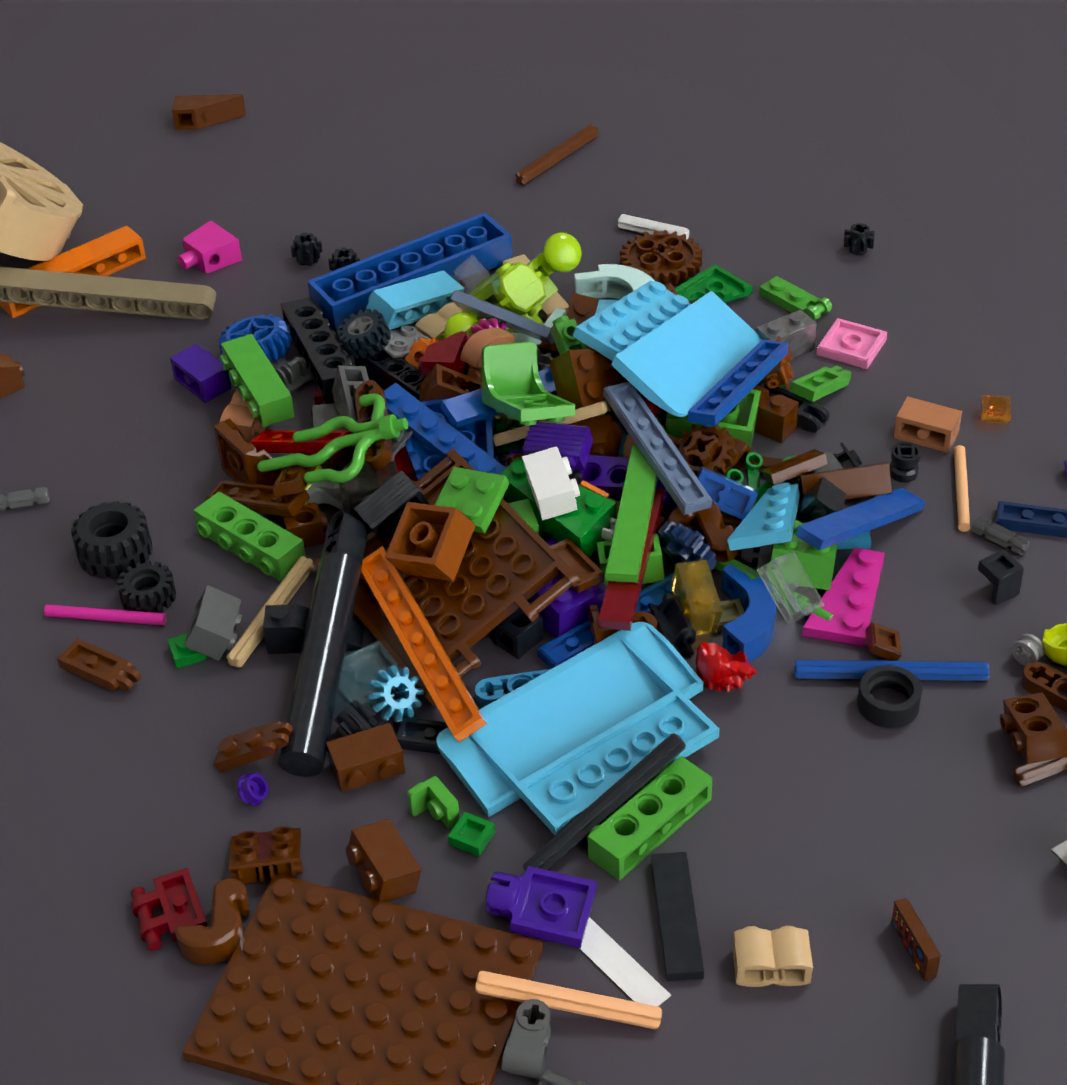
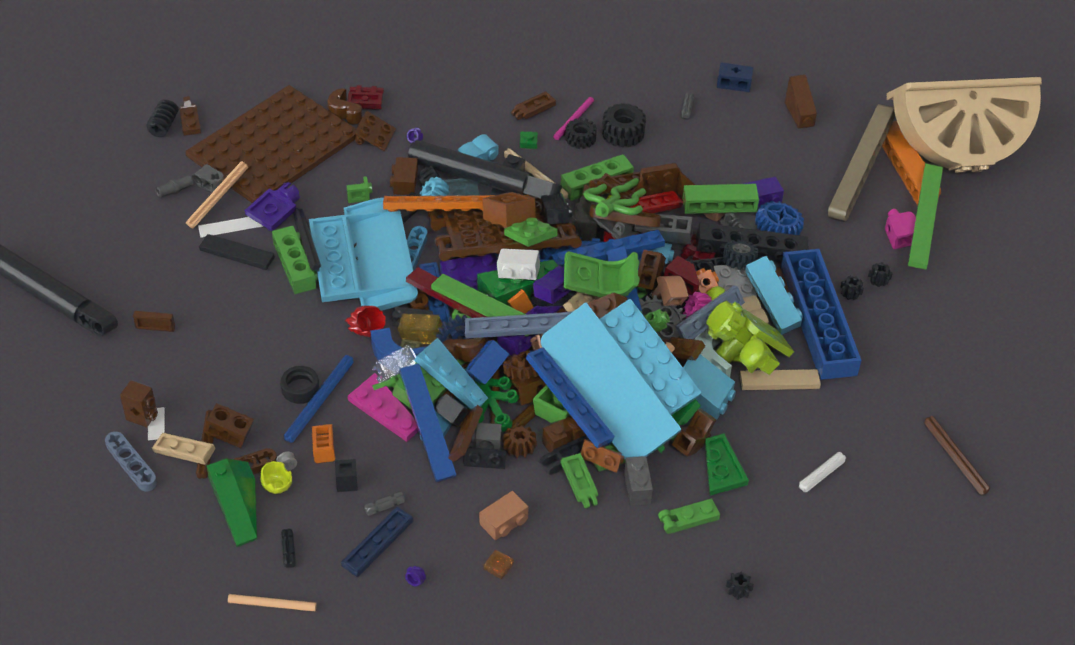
camera: 110 degrees right, 5 degrees up
(188, 221) = (925, 216): none -> bright green tile
(214, 623) = (531, 144): dark grey brick -> none
(252, 745) = (437, 136): reddish brown hinge -> none
(255, 689) = (481, 147): none -> medium azure brick
(383, 861) = (335, 161): reddish brown brick -> none
(470, 274) = (795, 337): clear brick -> none
(471, 834) = (333, 198): green plate -> none
(582, 565) = (466, 273): reddish brown tile -> none
(610, 281) = (747, 425): light aqua arch -> none
(663, 256) = (790, 459): reddish brown gear -> none
(772, 956) = (186, 269): tan brick -> none
(794, 467) = (490, 408): reddish brown tile -> none
(805, 440) = (519, 441): none -> reddish brown gear
(852, 343) = (620, 525): bright pink tile -> none
(883, 642) = (339, 402): reddish brown tile -> none
(904, 462) = (476, 484): black wheel -> none
(961, 488) = (440, 509): light nougat bar -> none
(963, 619) = (323, 444): none -> orange slope

